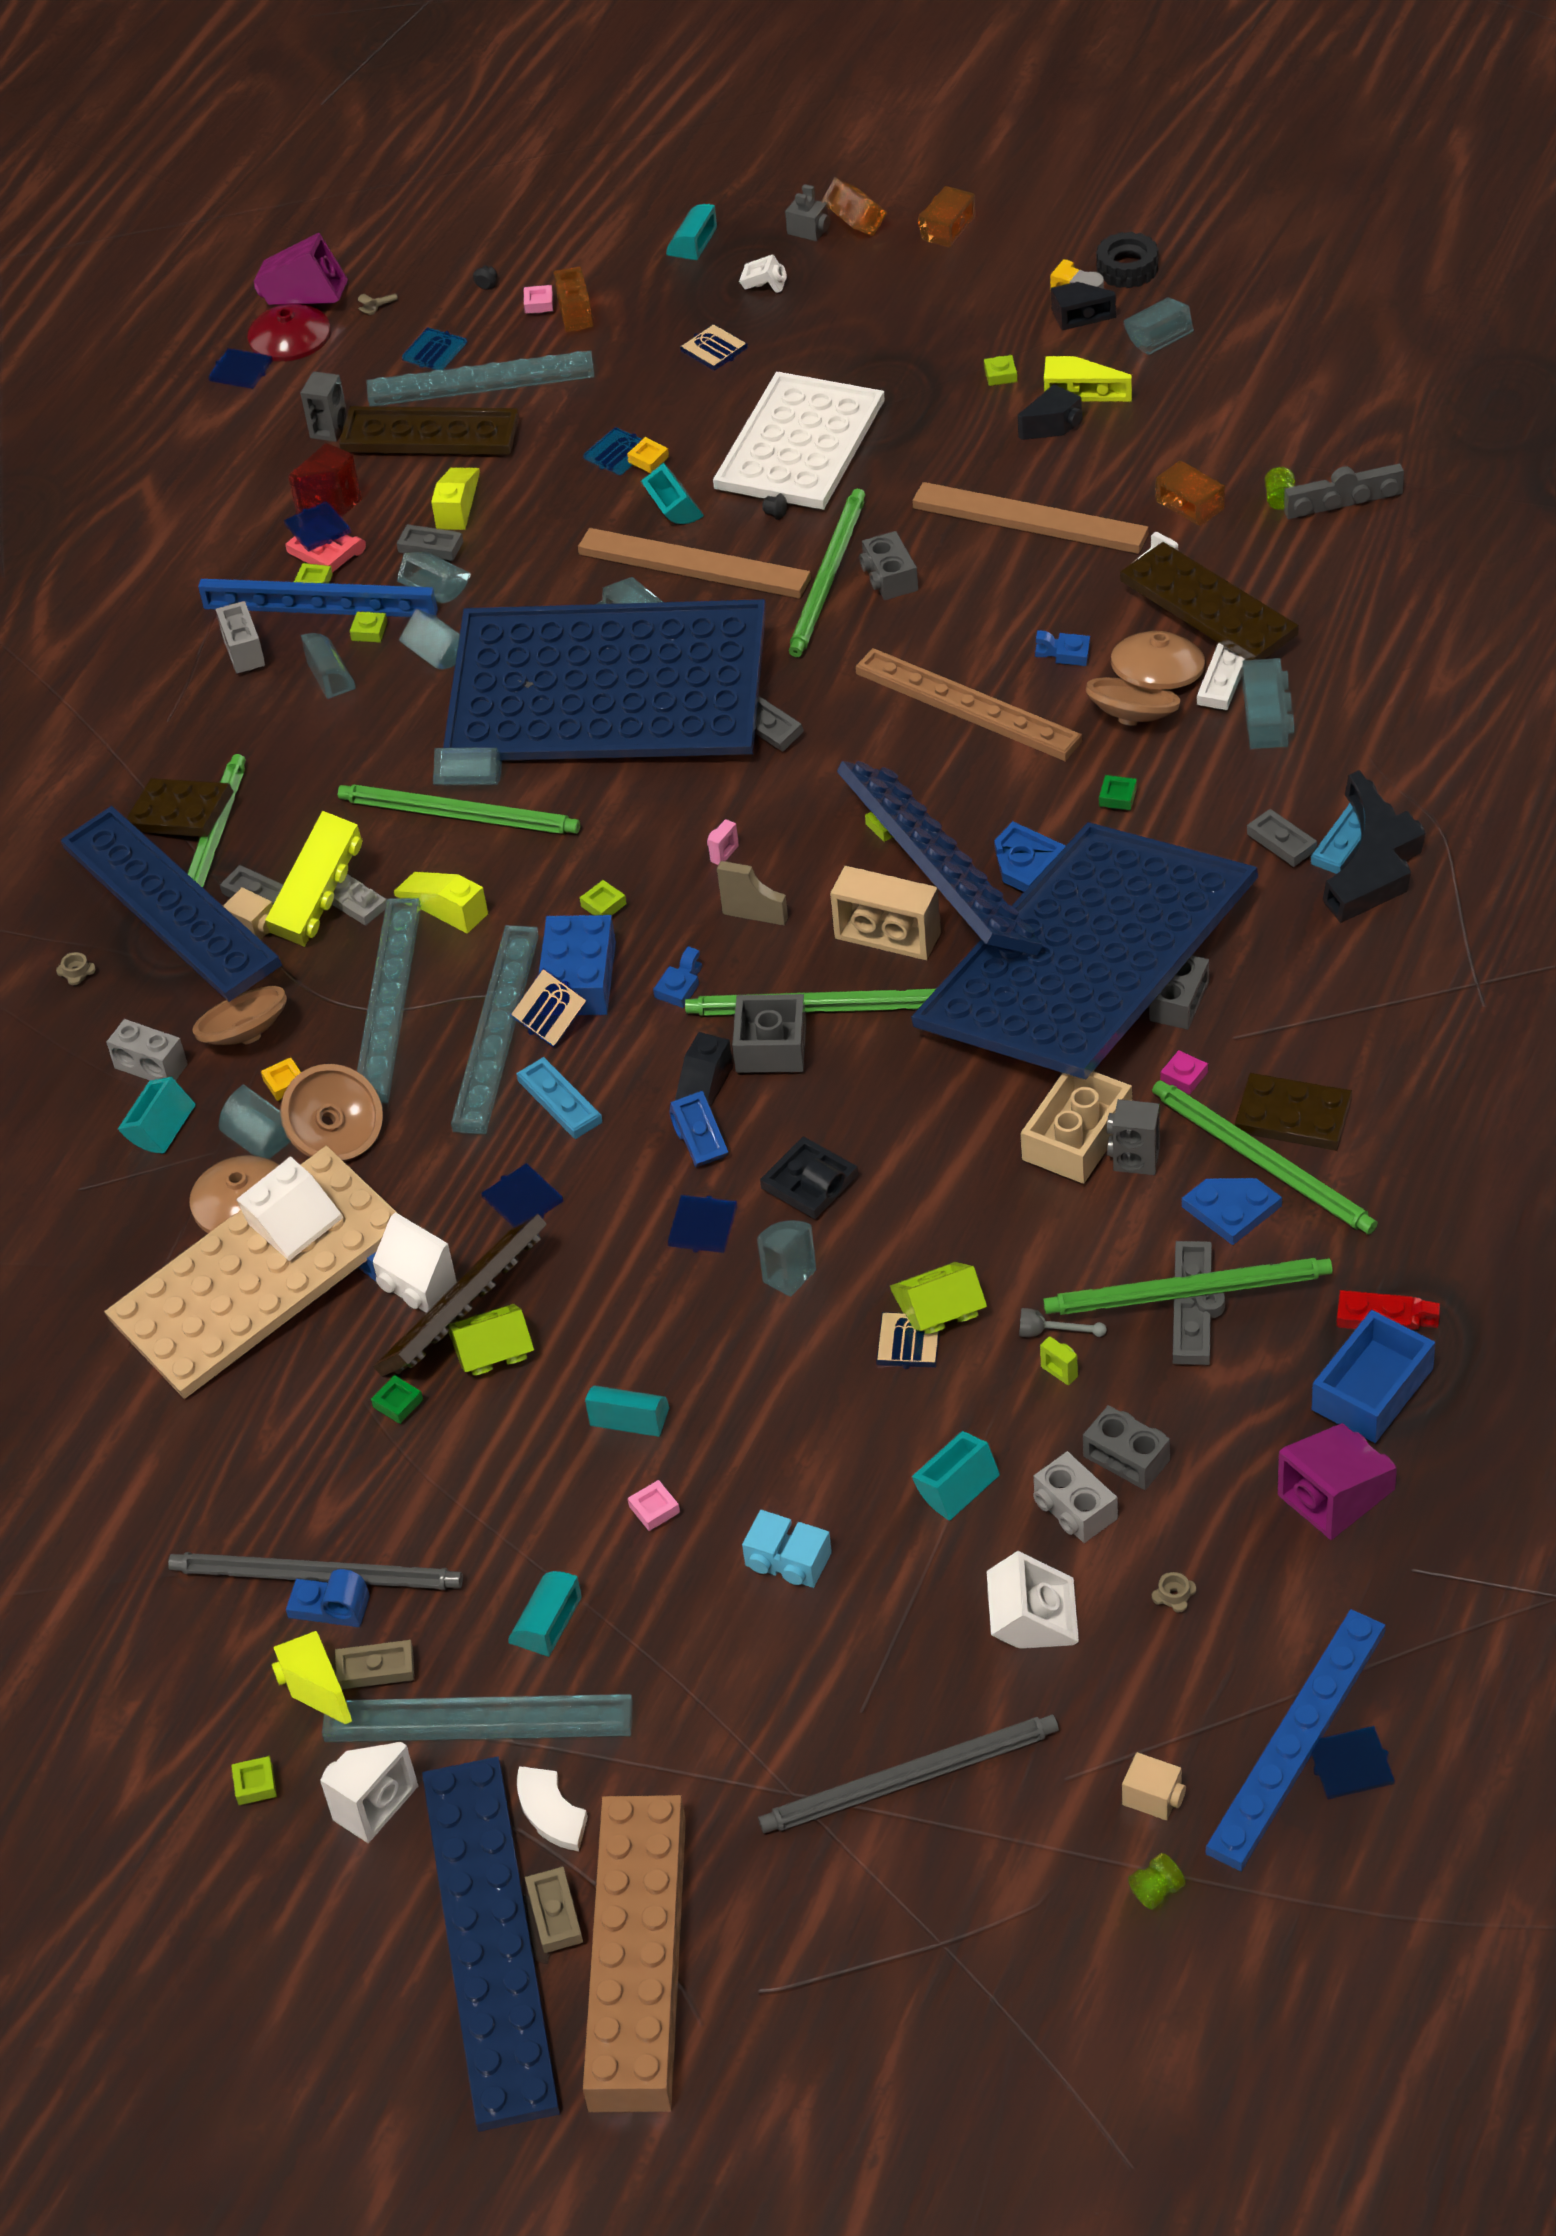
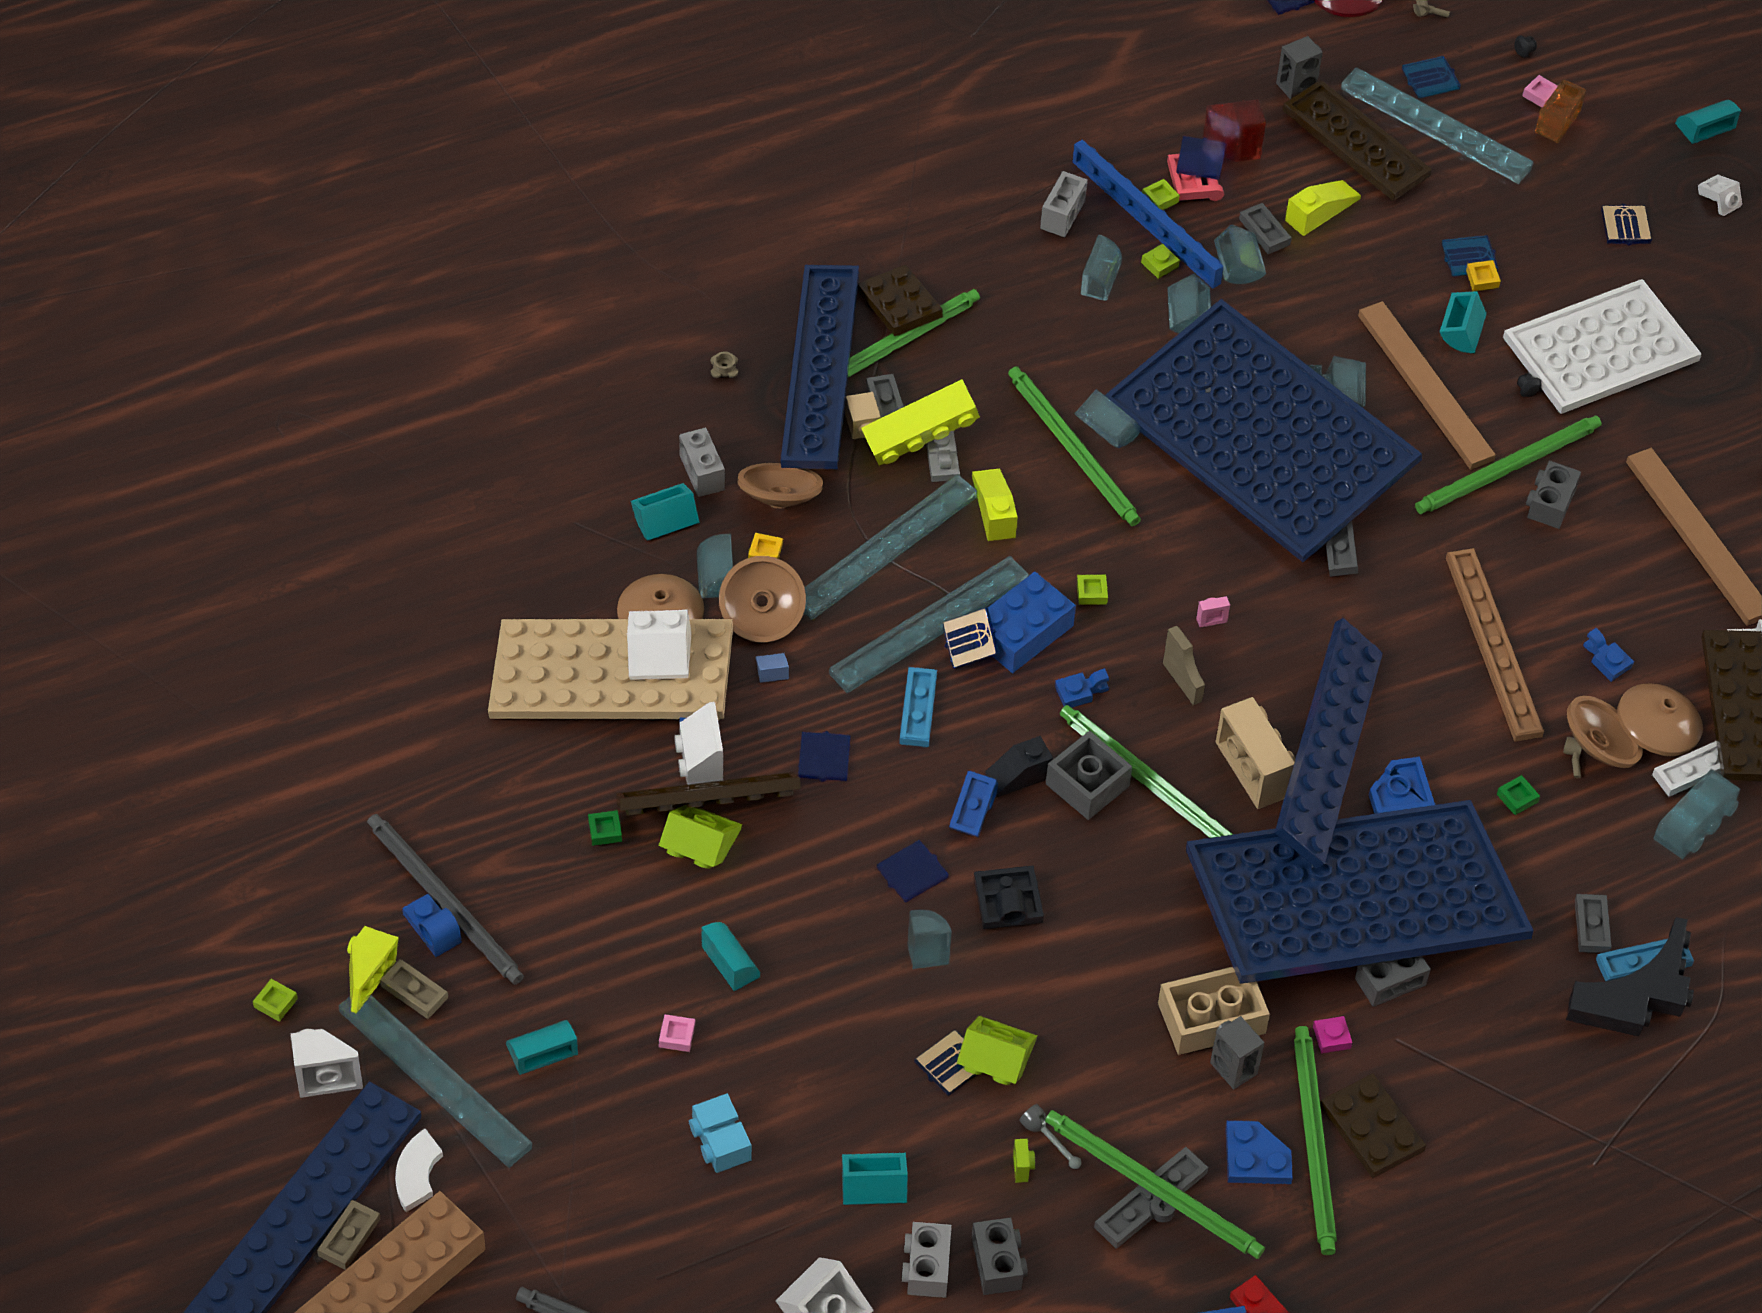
camera: 35 degrees right, 5 degrees up
(397, 1163) = (772, 667): none -> medium blue slope
(1119, 728) = (1573, 748): none -> dark tan hand

